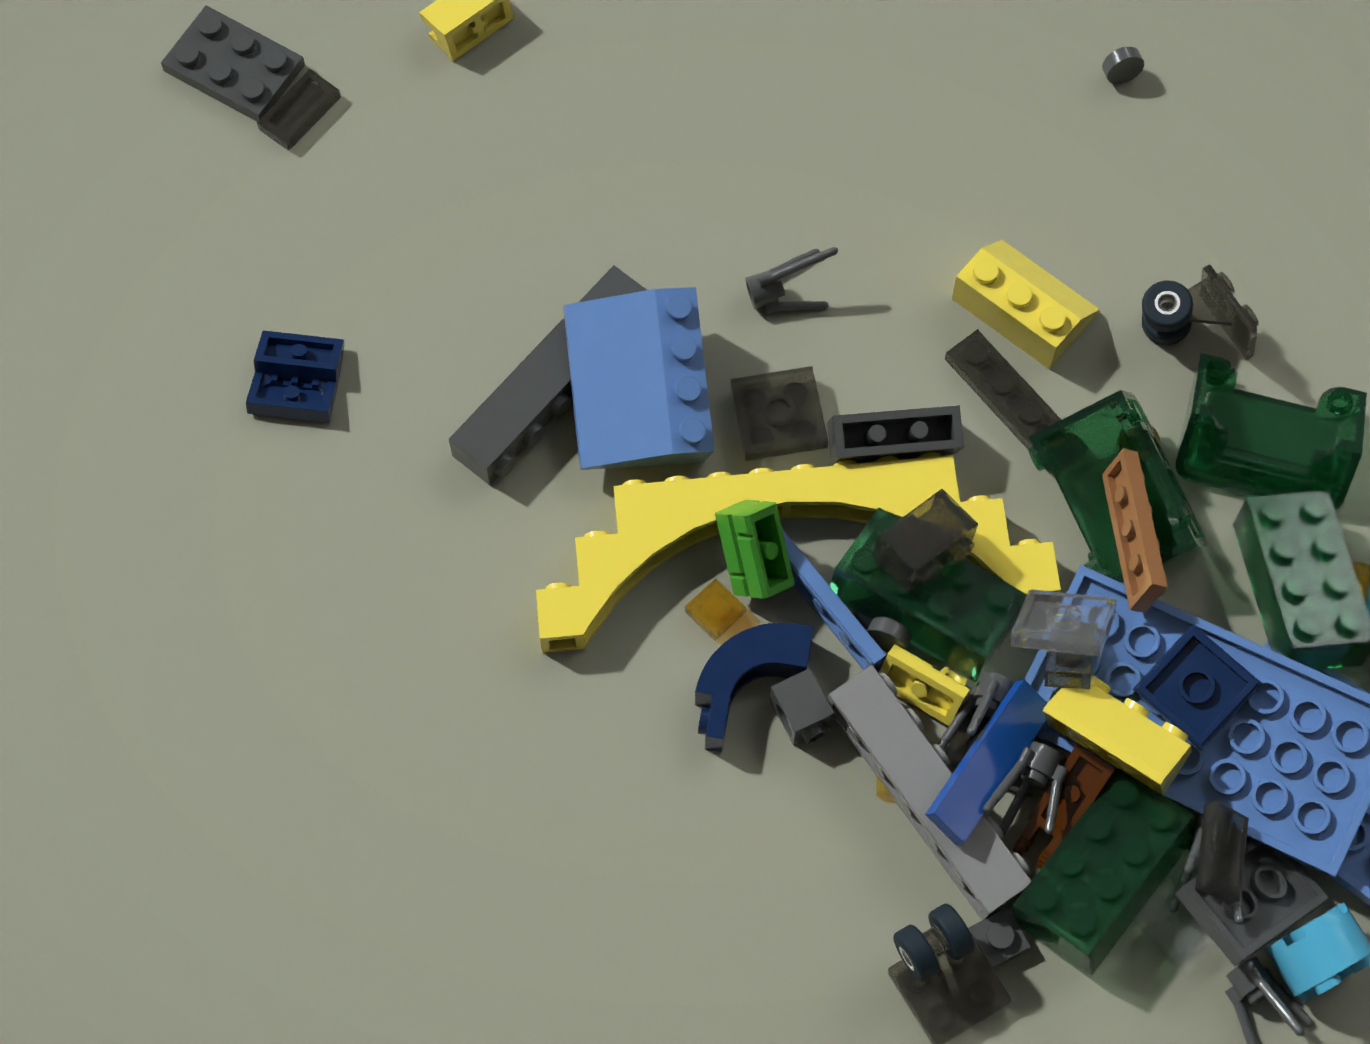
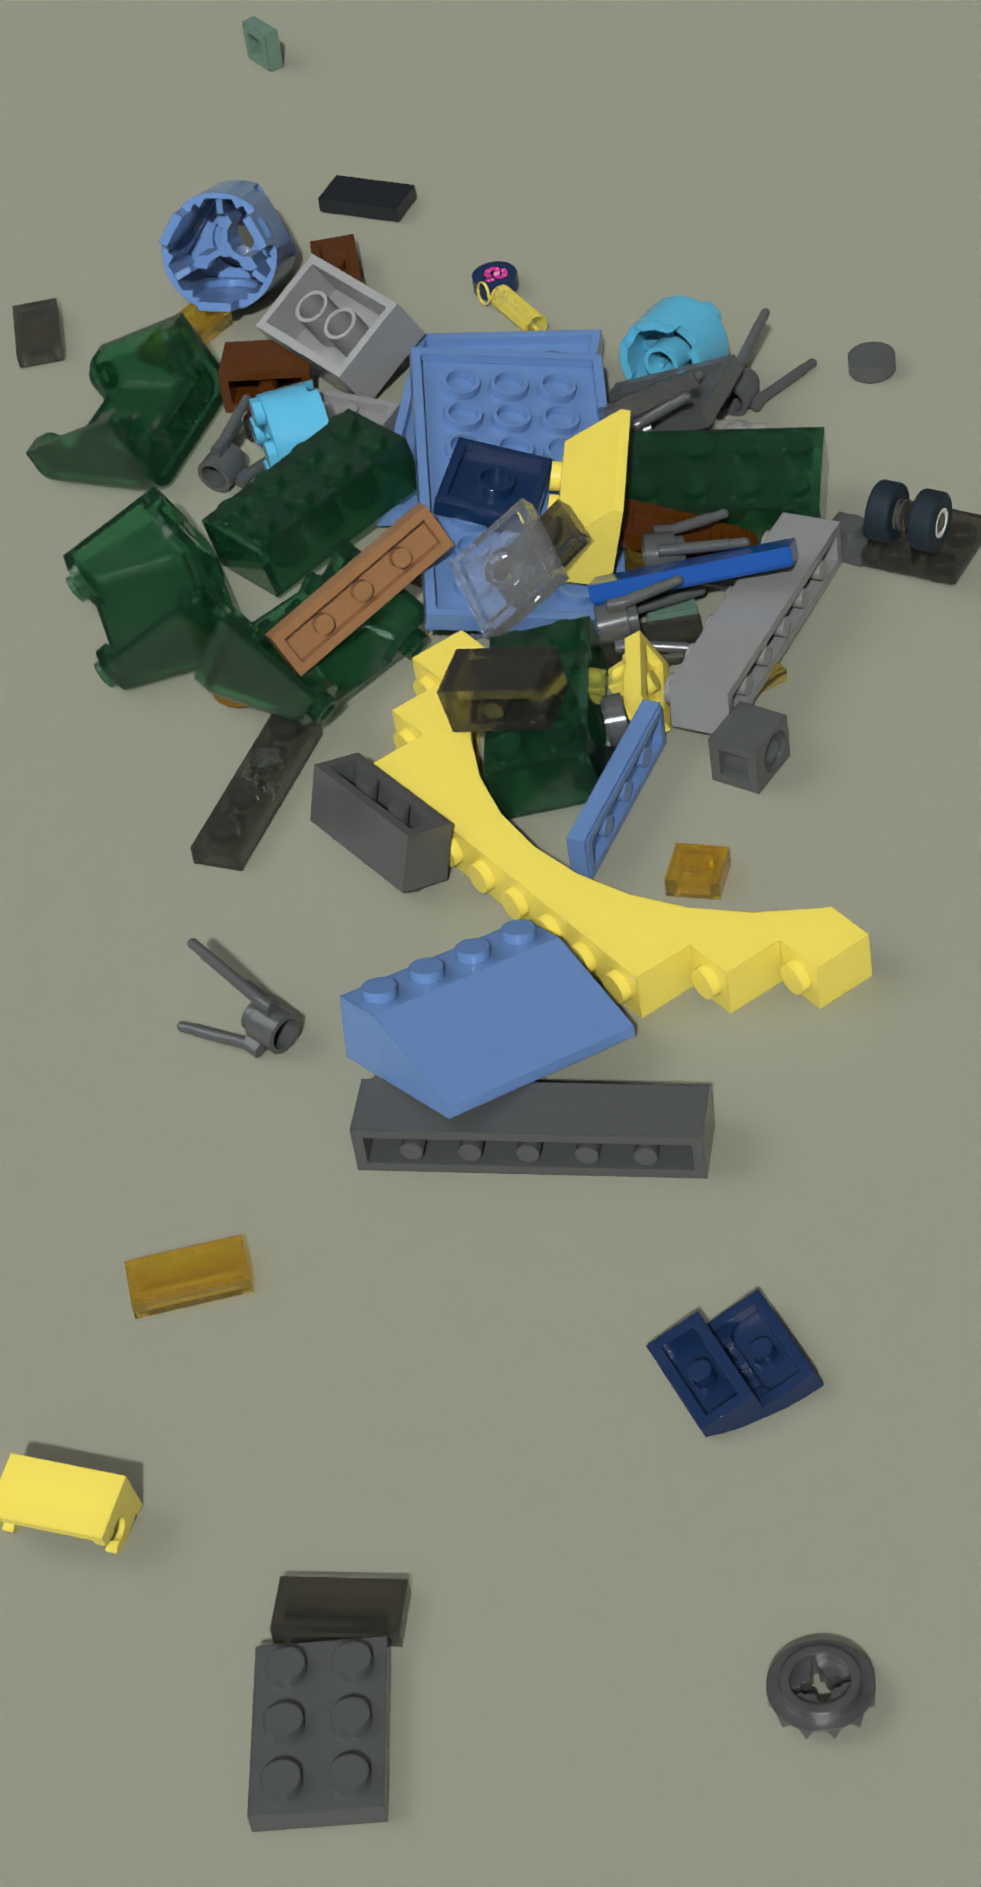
camera: 115 degrees left, 25 degrees down
(54, 271) = (842, 1671): none -> flat silver gear
(595, 154) = (188, 1277): none -> clear yellow tile
(747, 656) = (751, 809): dark blue arch -> none
(755, 549) = (613, 834): bright green brick -> none
(779, 413) = (416, 925): clear smoke plate -> none
(1022, 302) = (128, 829): light yellow slope -> none
(1172, 308) = (43, 685): plate -> none

